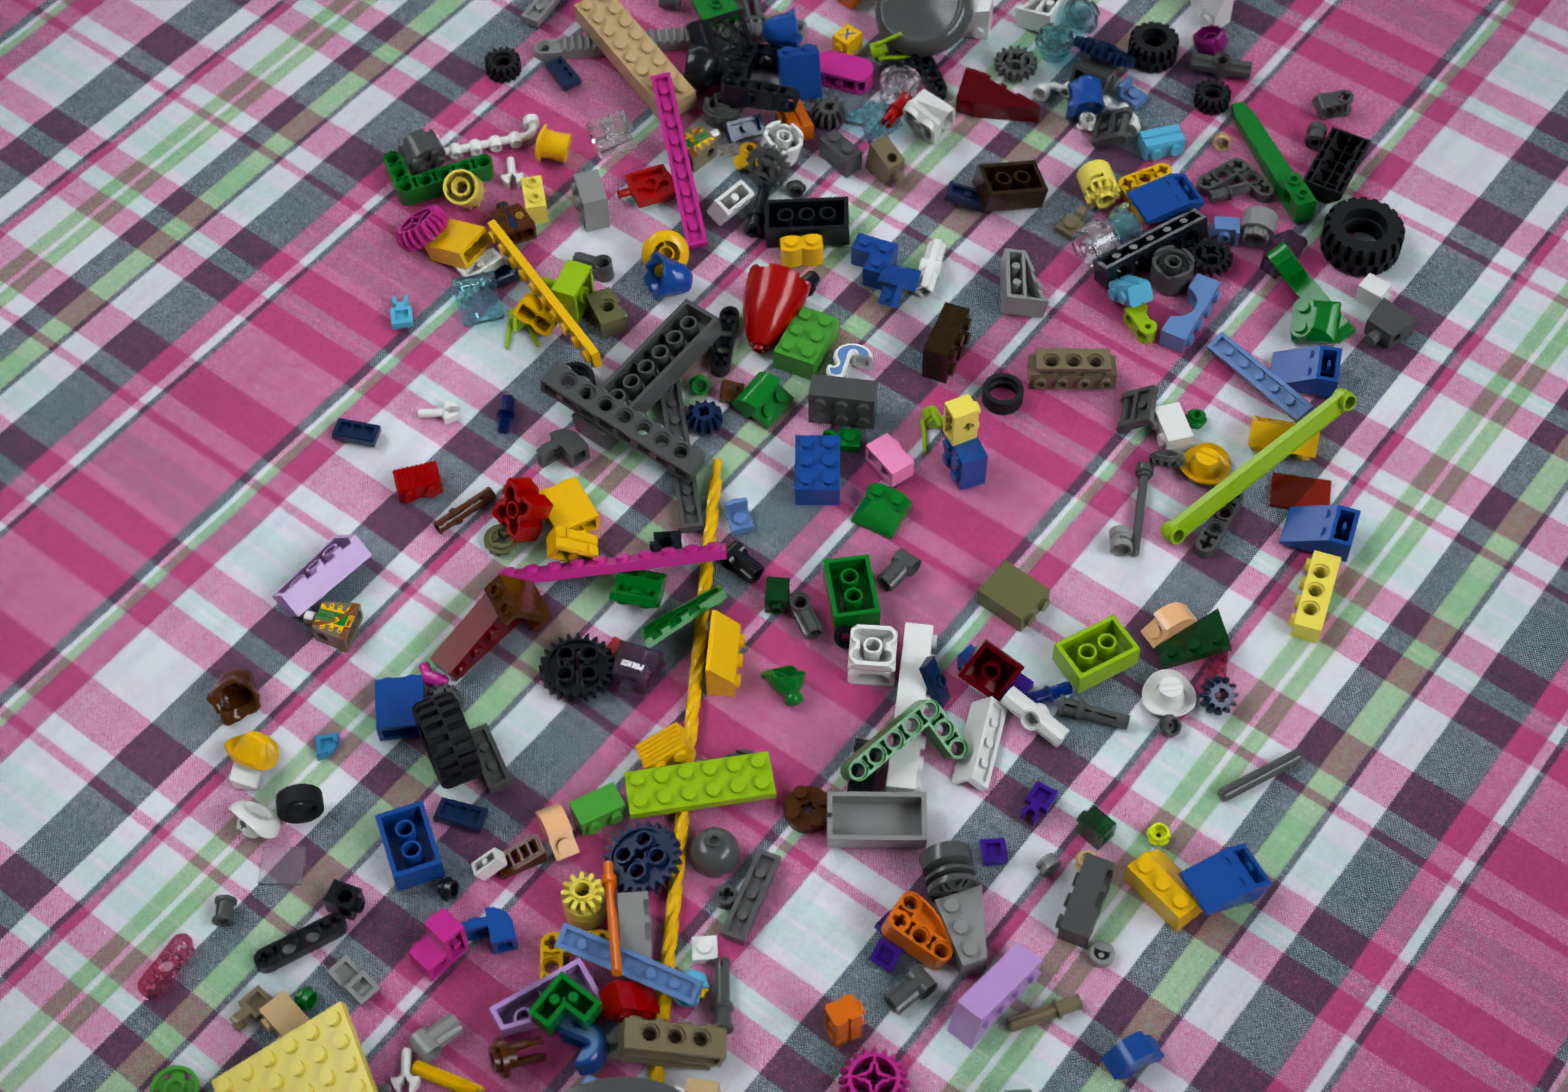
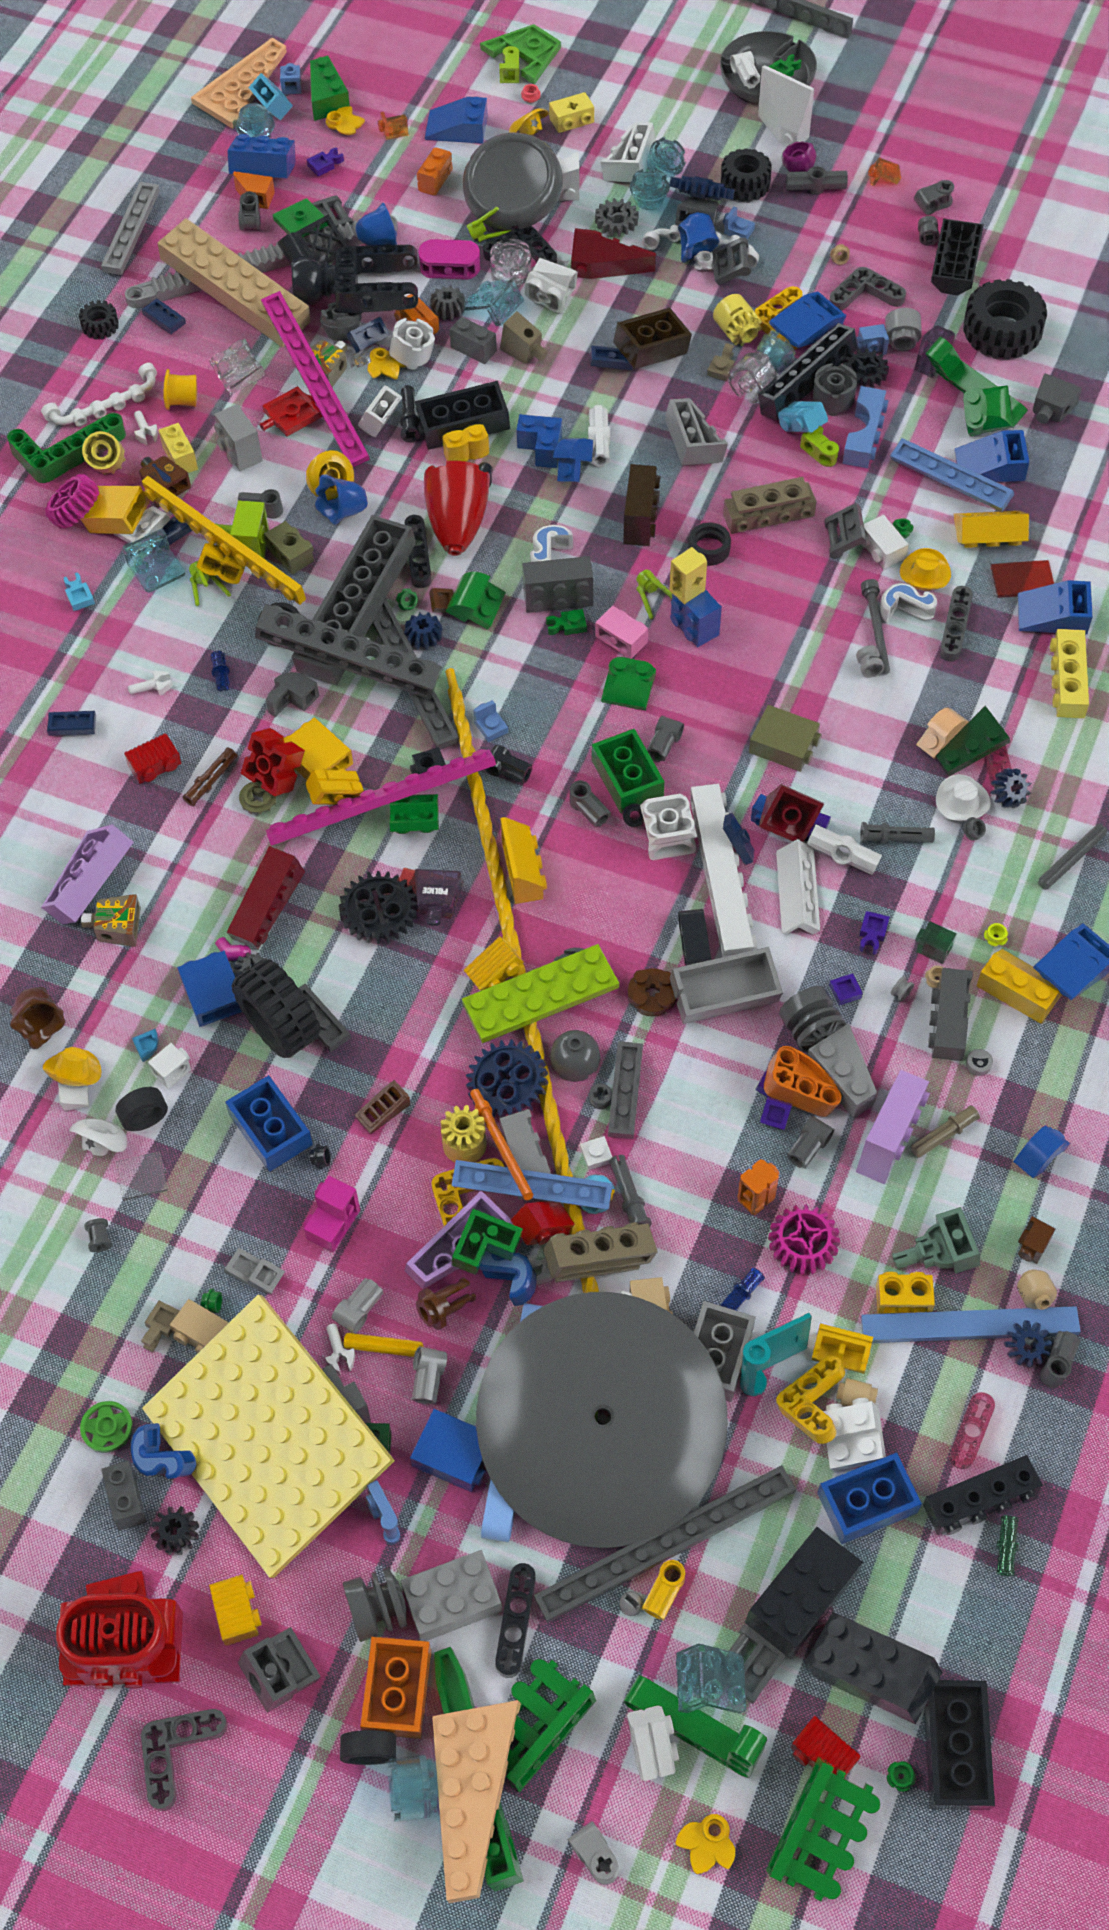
camera: 15 degrees left, 5 degrees up
(167, 977) = (54, 1293): clear pink beam -> none
(299, 939) = (183, 1244): black beam -> none
(340, 769) = (170, 1065): none -> white brick
(340, 891) = (211, 1186): black brick -> none
(422, 151) = (46, 423): dark grey brick -> none
(460, 815) = (308, 1080): dark blue plate -> none
(489, 864) = (354, 1122): white piece -> none
(495, 925) = (385, 1182): blue brick -> none
(518, 599) = (299, 852): reddish brown panel -> none
(558, 831) = (413, 1070): light nougat brick -> none
(598, 809) = (446, 1042): bright green brick -> none
(682, 615) = (461, 837): green wing -> none
(767, 166) = (405, 357): dark grey gear -> none
(777, 595) = (554, 789): dark green brick -> none
(786, 682) = (592, 872): green hair -> none
(795, 189) = (438, 384): dark grey plate -> none
(800, 69) = (408, 262): blue brick -> none
(806, 343) = (501, 535): bright green brick -> none
(817, 469) = (553, 658): blue brick -> none
(847, 40) = (442, 225): yellow brick -> none
(895, 110) = (517, 285): red pin -> none
(902, 736) = (727, 898): green beam -> none
(1048, 693) = (849, 824): clear blue axle -> none
(1095, 653) = (883, 775): lime brick -> none
(1161, 142) = (783, 266): medium azure brick -> none
(1167, 458) = (889, 572): dark grey gear -> none
(1174, 486) = (907, 599): none -> white animal
(1178, 528) = (919, 639): lime piece -> none
(1212, 105) = (814, 220): black tyre -> none
(1228, 192) = (862, 302): dark grey axle -> none
(1288, 187) = (920, 286): green piece -> none
(1291, 68) = (885, 170): none -> clear orange bracket
(1372, 291) = (1031, 370): white brick -> none

